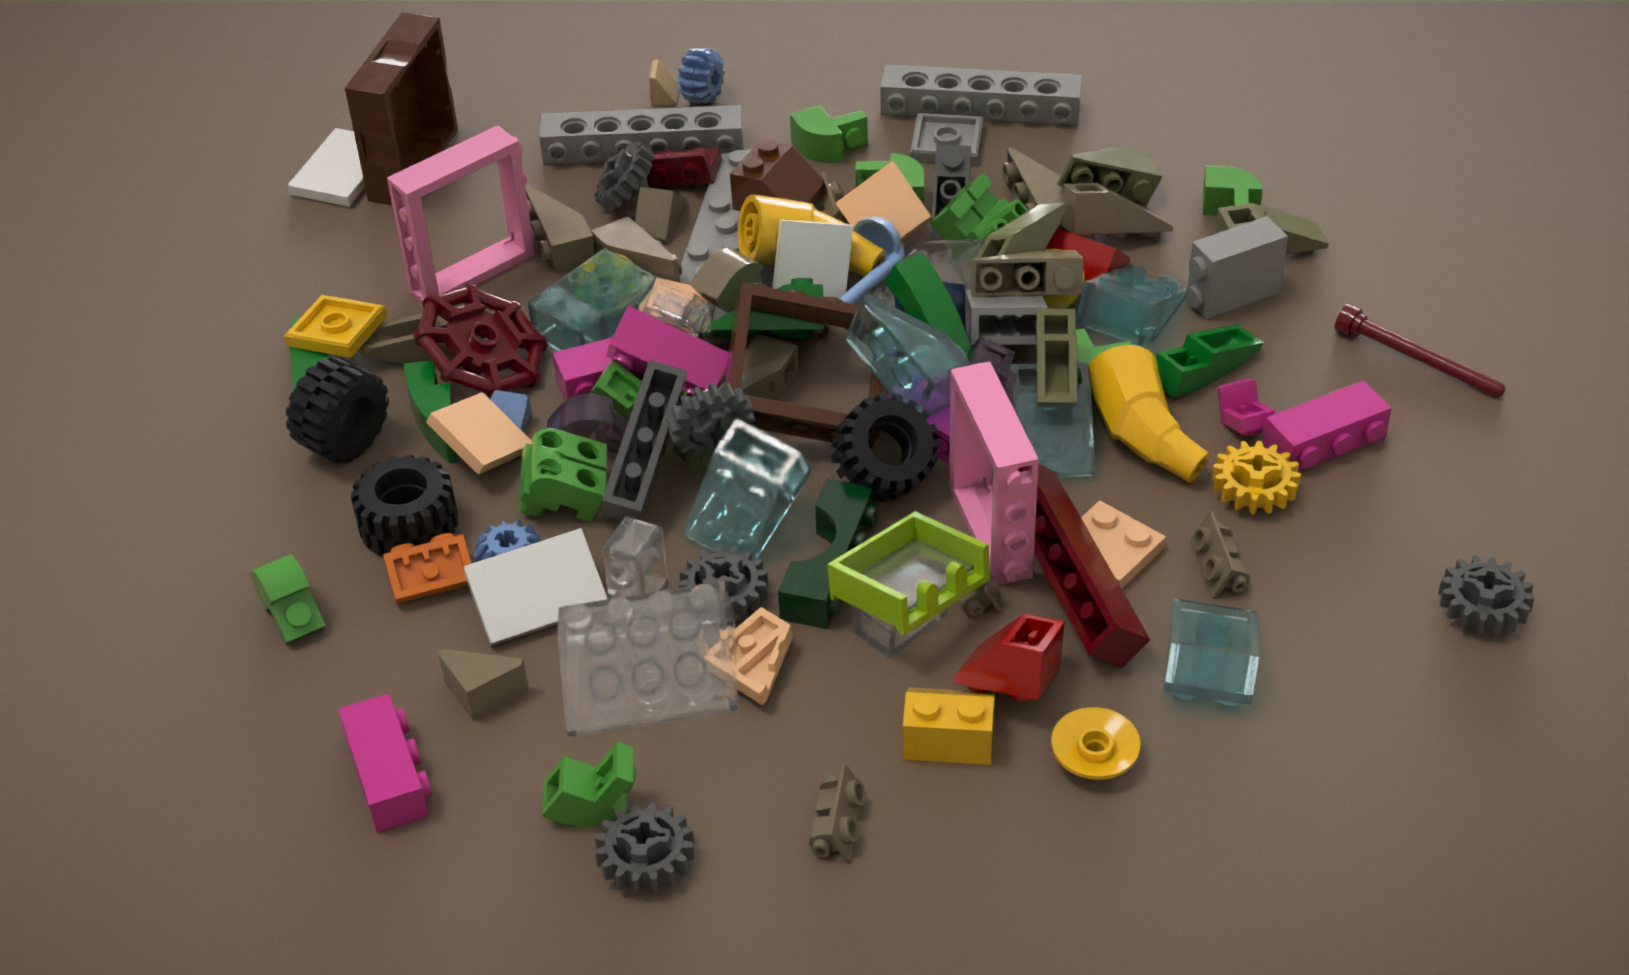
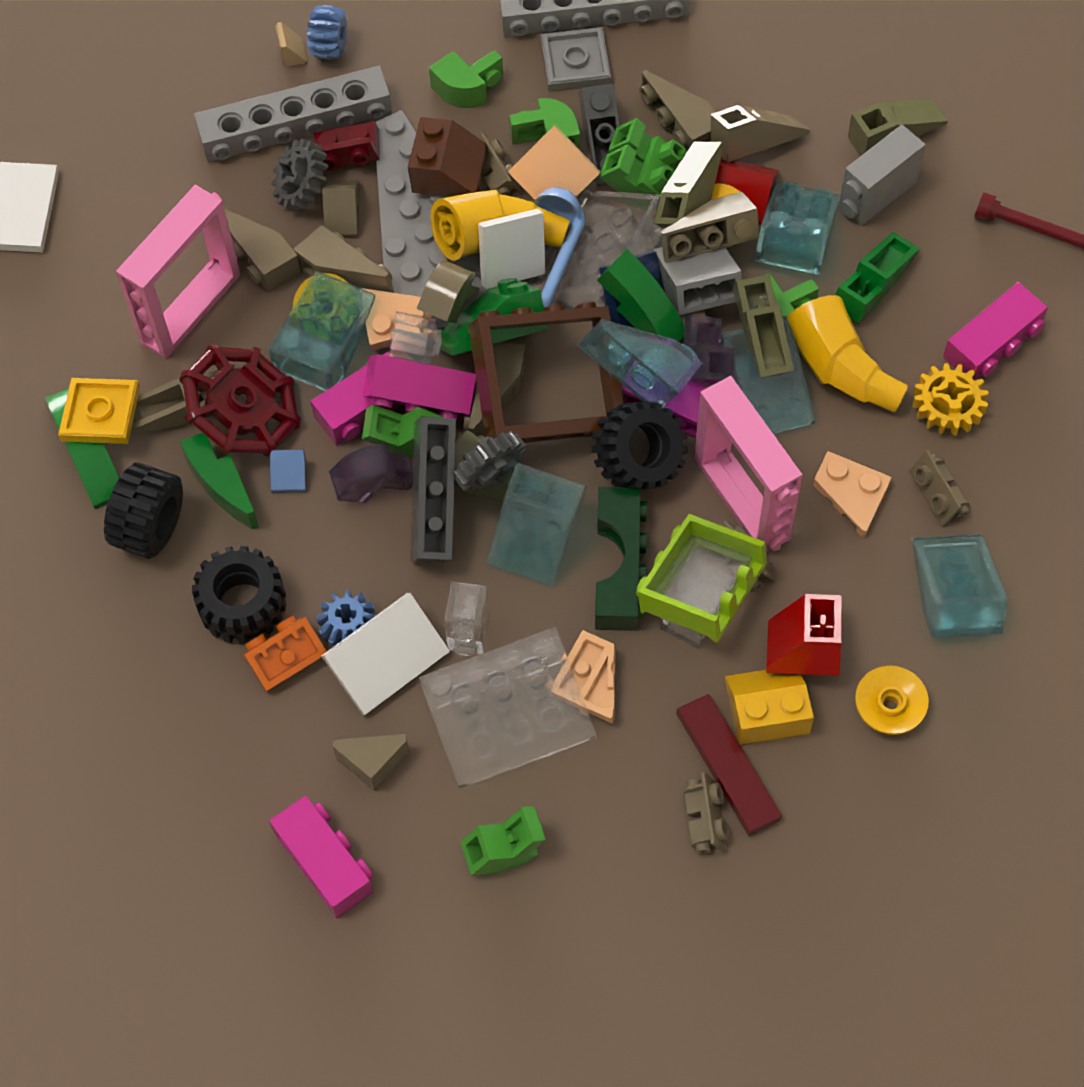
camera: 15 degrees left, 20 degrees up
(287, 595) = (173, 711): bright green brick -> none
(401, 102) = (69, 148): reddish brown tile -> none
(479, 432) = (277, 502): light nougat tile -> none
(562, 471) = (365, 532): bright green hips -> none
(644, 847) = (551, 887): dark grey gear -> none
(734, 570) = (537, 596): dark grey gear -> none
(882, 773) = (729, 764): none -> dark red tile
(1083, 576) = (842, 543): dark red brick -> none
(1118, 168) = (750, 81): olive slope -> none
(1229, 188) = (851, 79): bright green brick -> none
(1241, 407) = (922, 328): dark pink bracket -> none

